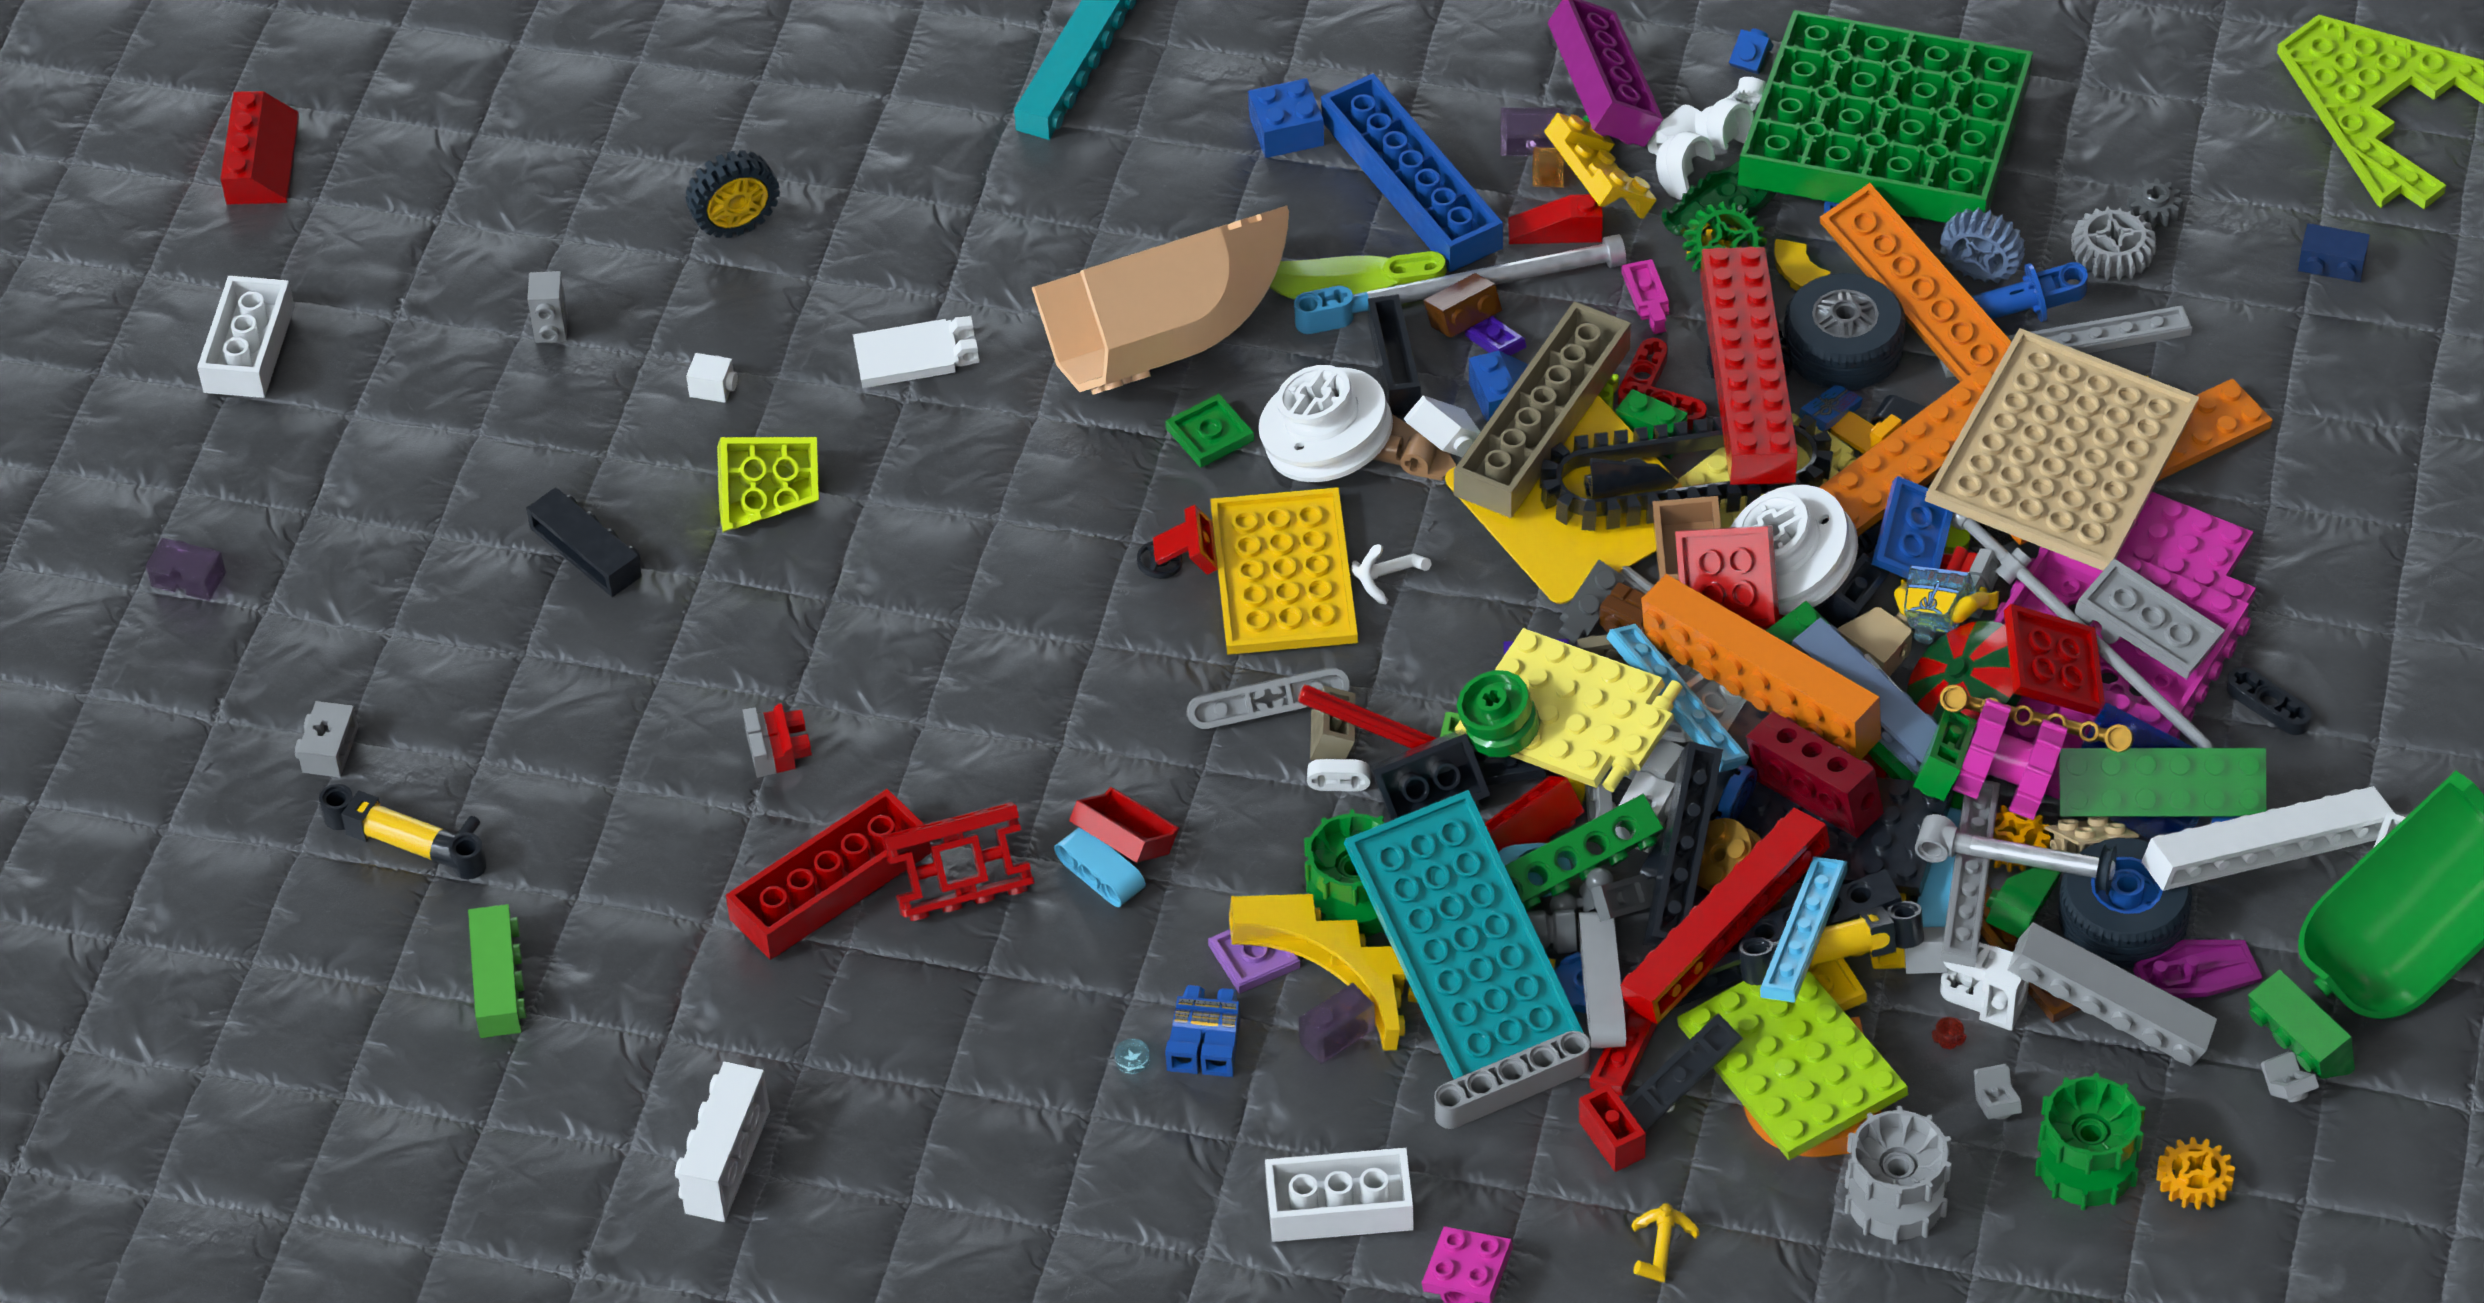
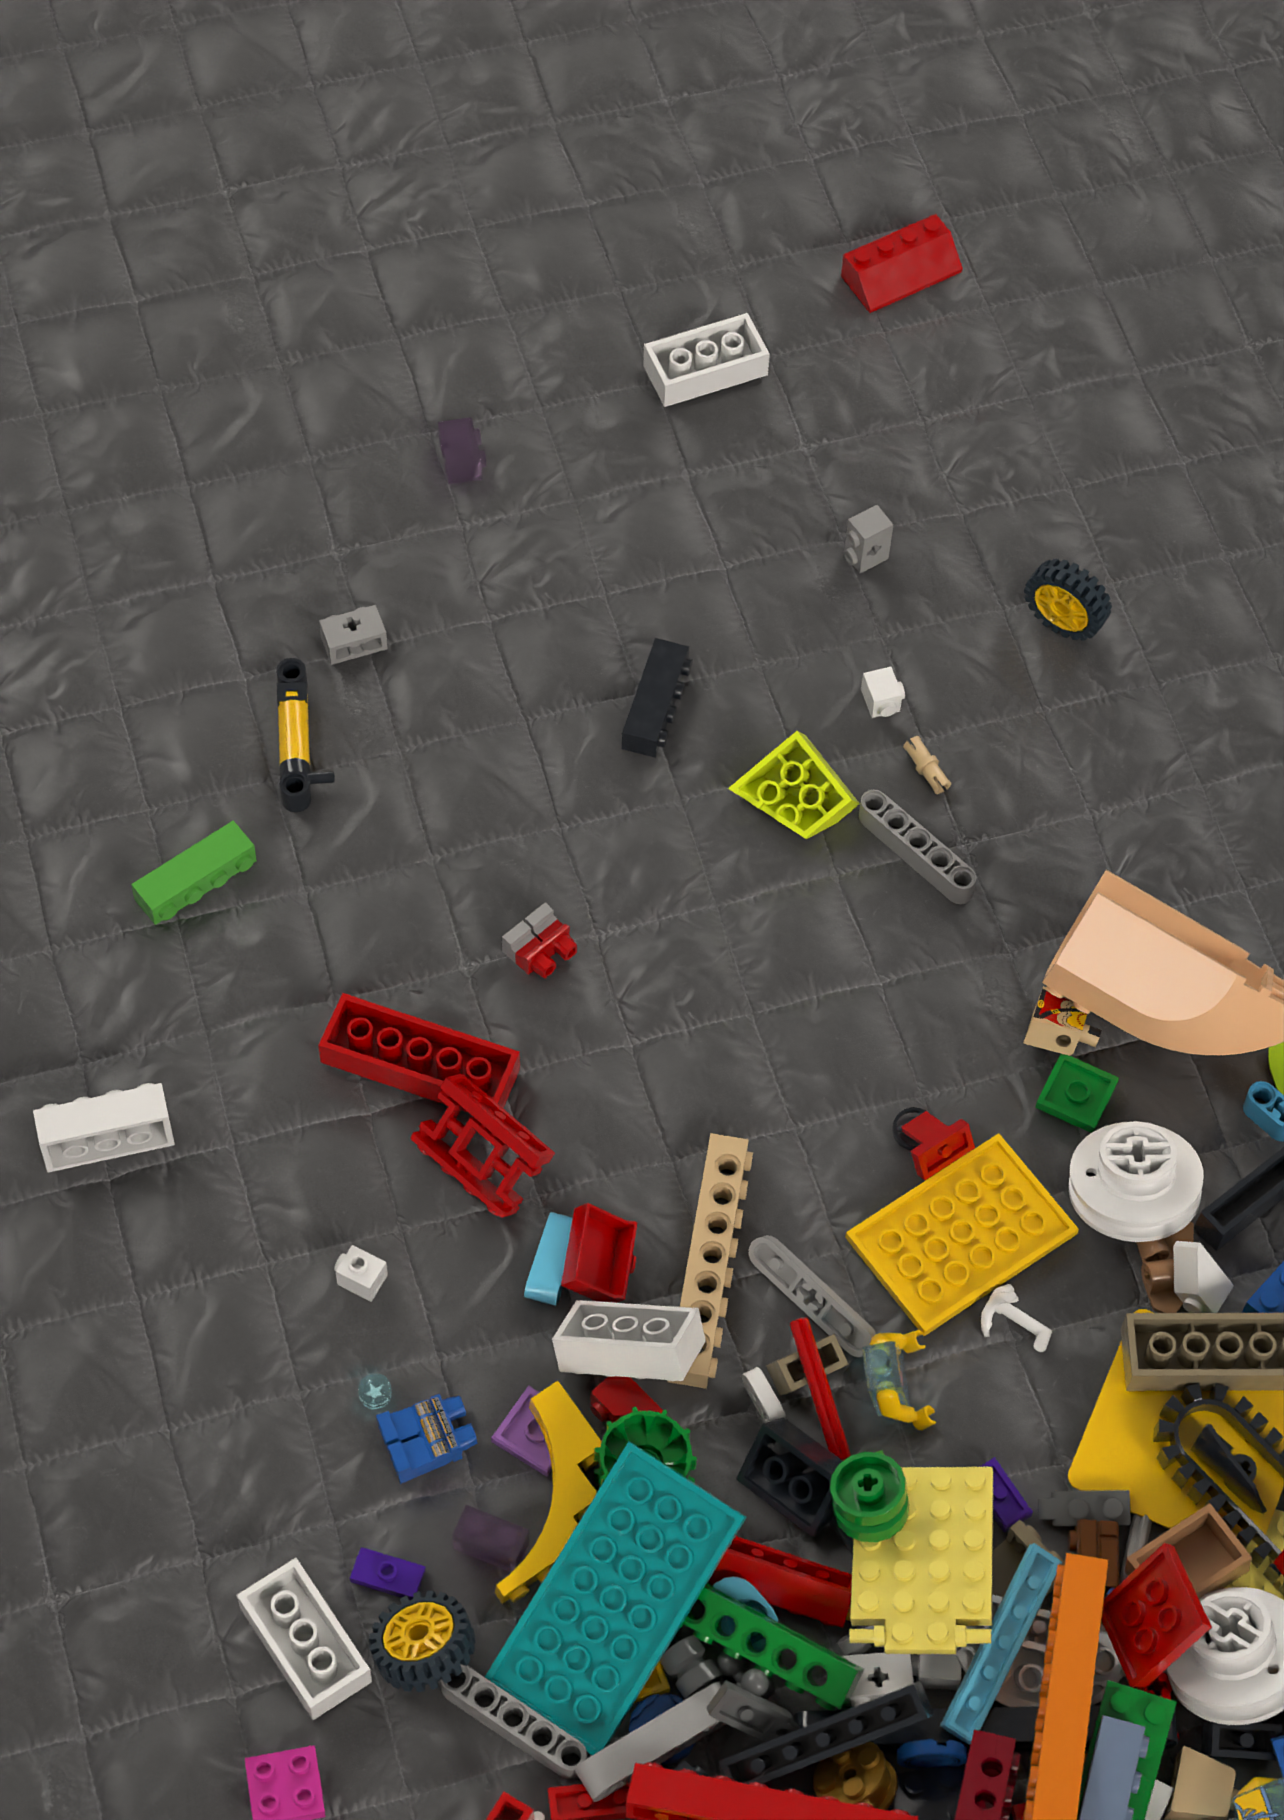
camera: 55 degrees right, 10 degrees up
(810, 381) = (927, 765): none -> tan pin
(888, 425) = (920, 859): none -> light grey beam
(915, 351) = (1012, 822): white tile -> none
(1011, 1013) = (360, 1272): none -> white brick
(1138, 407) = (1059, 1025): none -> tan torso
(1182, 755) = (722, 1154): none -> tan brick
(1230, 828) = (629, 1340): none -> white brick
(1275, 870) = (617, 1397): none -> red slope
(1314, 1118) = (387, 1573): none -> dark purple plate
(1386, 675) = (888, 1380): none -> torso
(1402, 1104) = (422, 1641): none -> black wheel

